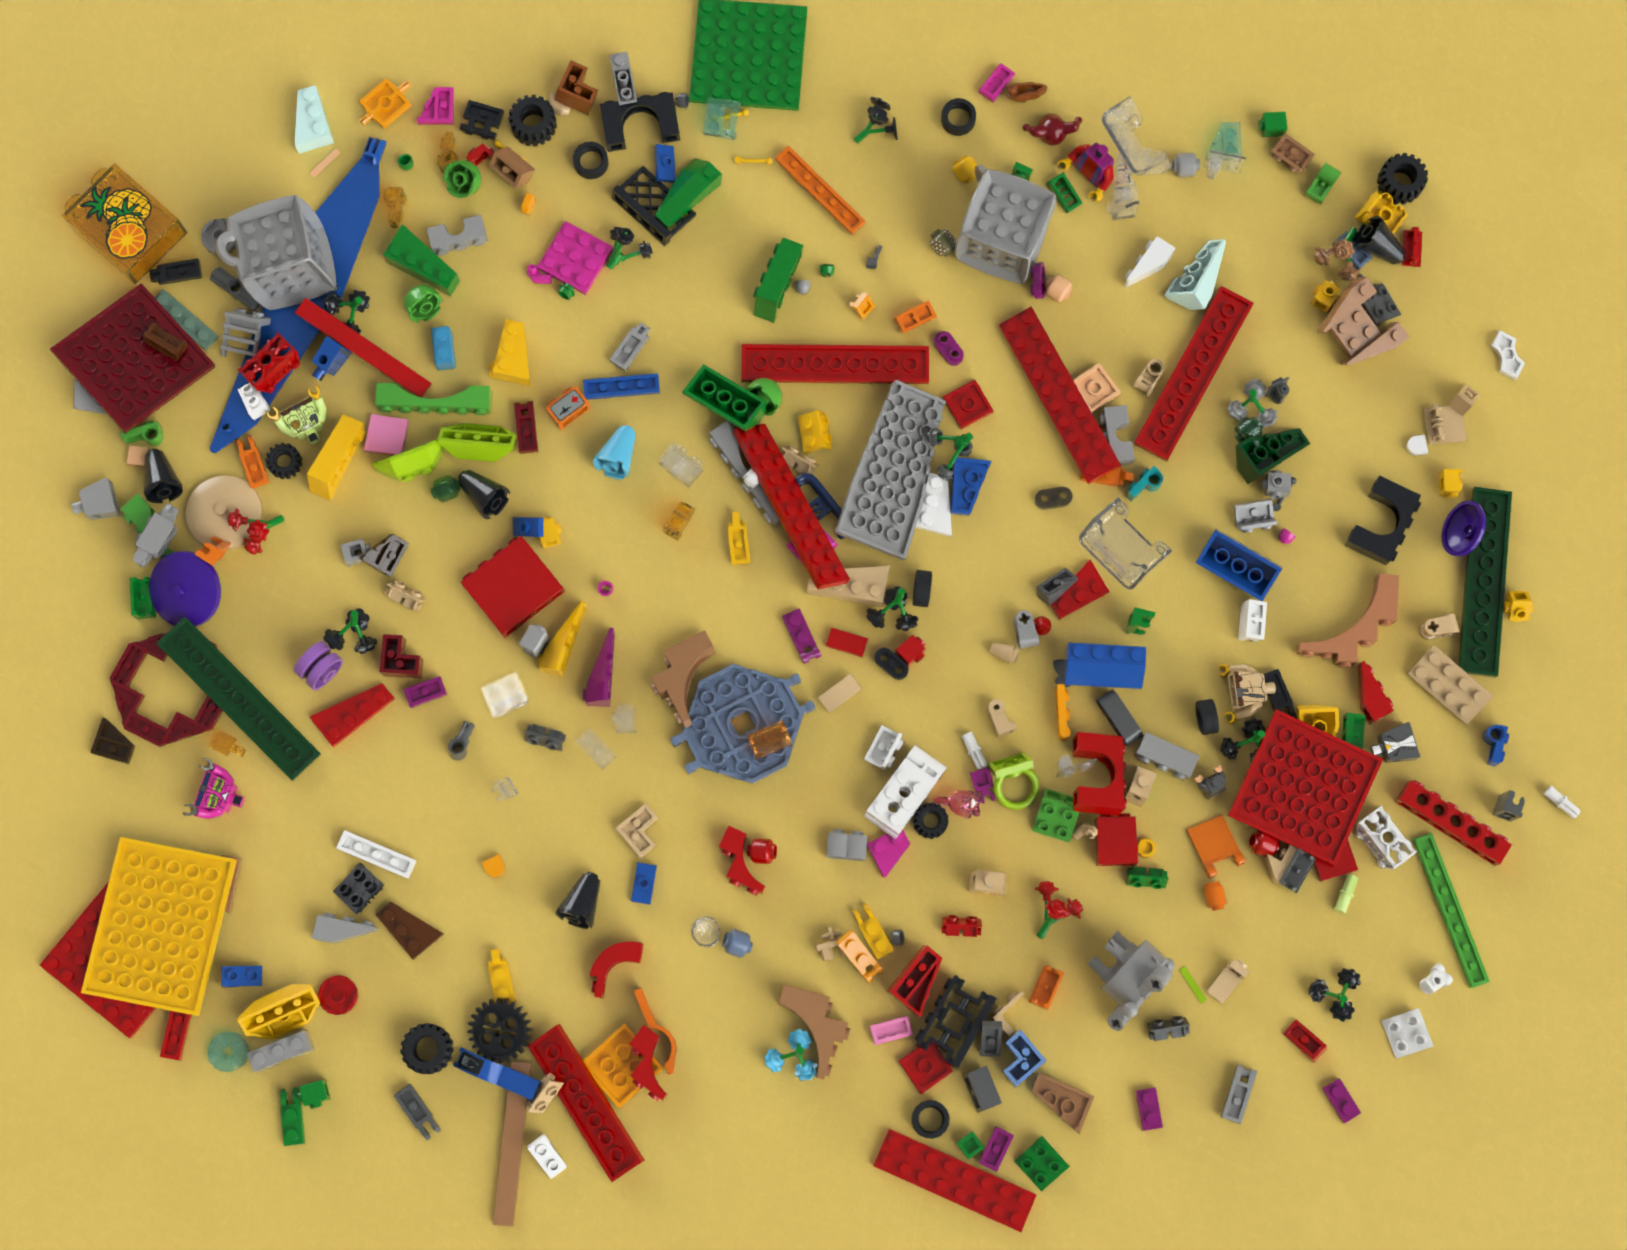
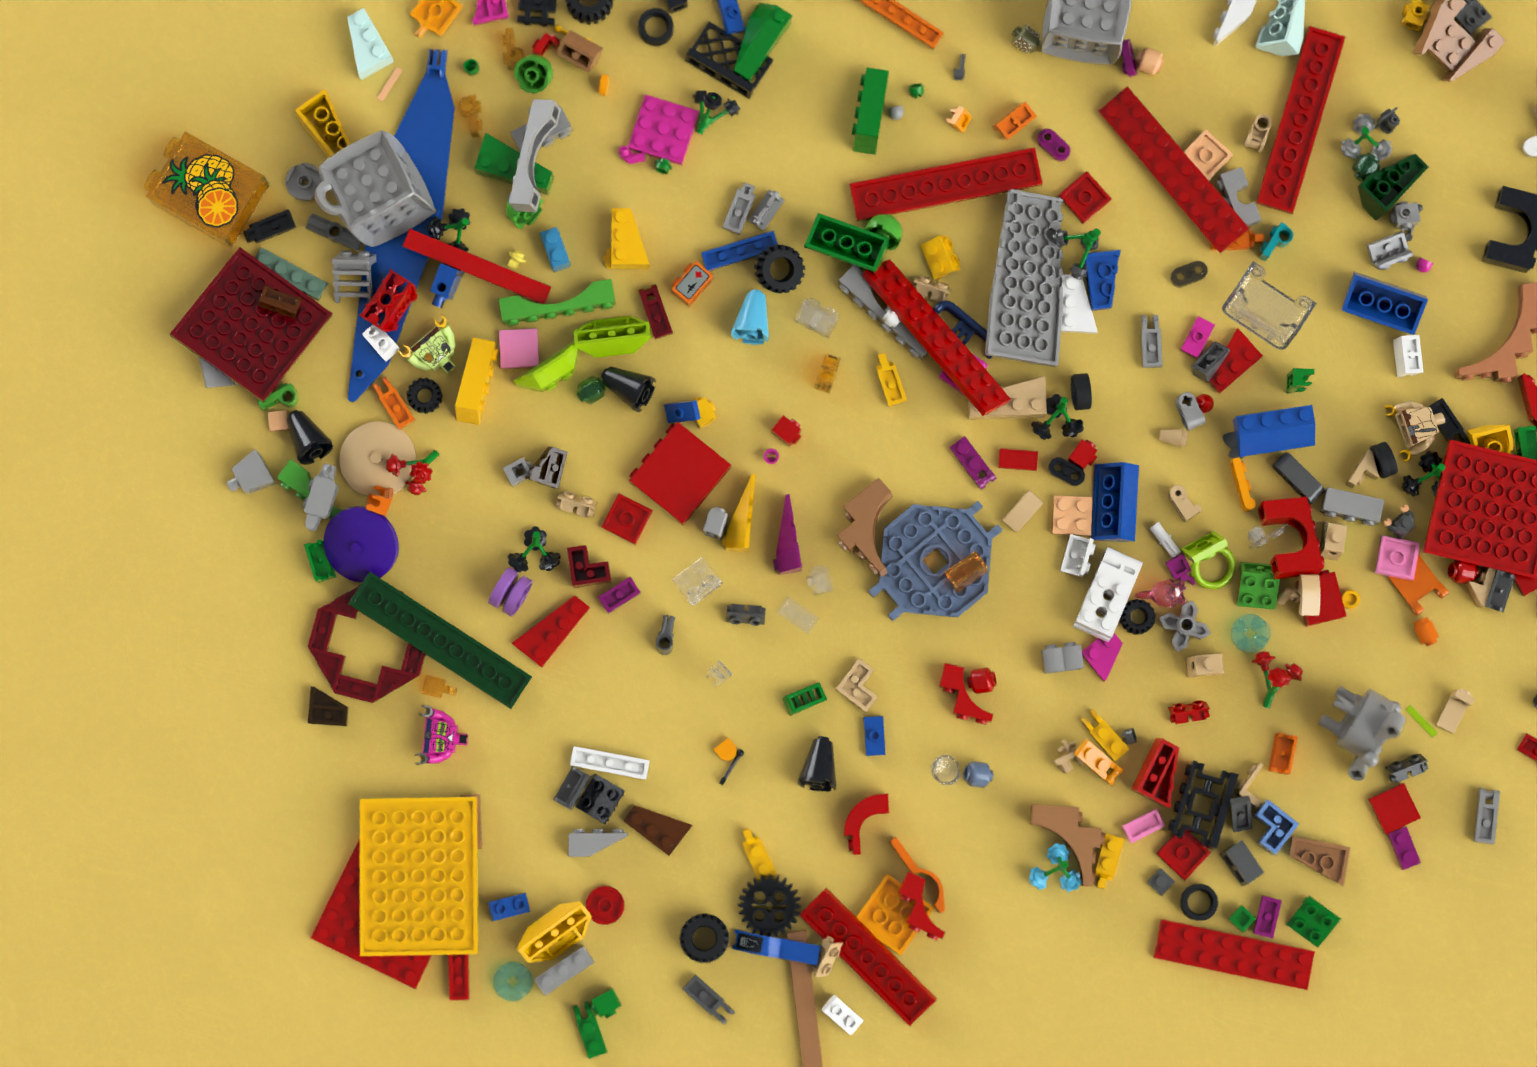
camera: 10 degrees left, 5 degrees up
(248, 180) = (322, 123): none -> yellow wedge
(333, 872) = (572, 788): none -> dark grey hinge
(403, 350) = (517, 257): none -> light yellow plate
(451, 620) = (627, 518): none -> red tile
(457, 223) = (541, 121): none -> light grey arch
(507, 872) = (740, 753): none -> black hinge
(574, 826) = (789, 705): none -> green slope
(627, 567) = (787, 431): none -> red brick
(656, 352) = (766, 209): none -> light grey hinge
(666, 422) = (795, 268): none -> black tyre
(849, 1056) = (1108, 859): none -> yellow hinge
(888, 708) = (1072, 515): none -> light nougat plate
(896, 1090) = (1160, 881): none -> dark grey plate
(932, 703) = (1114, 502): none -> blue slope
(965, 834) = (1187, 616): none -> light grey plant
(1001, 557) = (1151, 343): none -> light grey hinge
(1047, 853) = (1256, 624): none -> clear light blue plate
(1049, 560) = (1197, 337): none -> dark pink plate
(1105, 833) = (1309, 594): none -> tan slope
(1138, 878) = (1365, 627): green hinge -> none
(1147, 1067) = (1394, 808): none -> red tile
(1189, 720) = (1367, 466): none -> tan slope
(1201, 817) = (1397, 558): none -> bright pink tile

